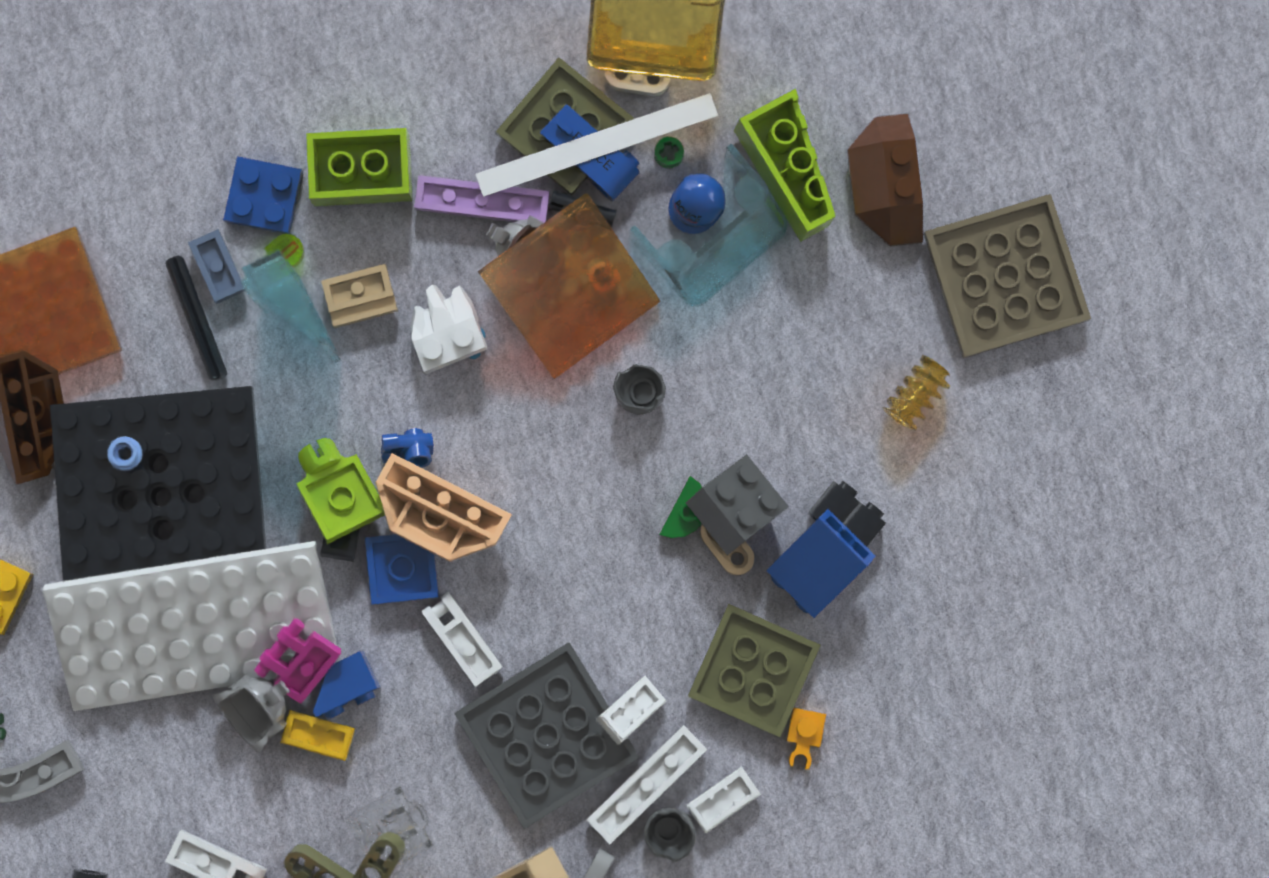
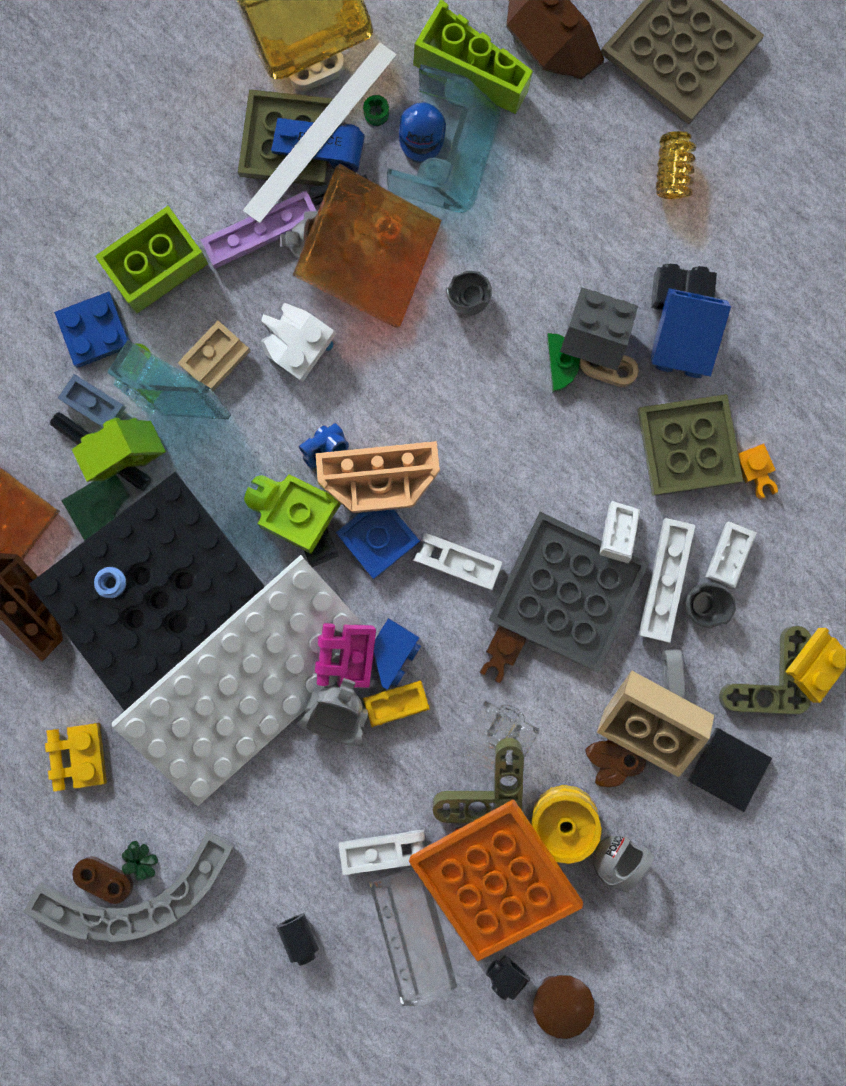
camera: 30 degrees left, 0 degrees up
(159, 366) = (95, 504): none -> clear green tile
(213, 329) = (117, 447): none -> lime brick
(451, 750) = (504, 649): none -> reddish brown plate

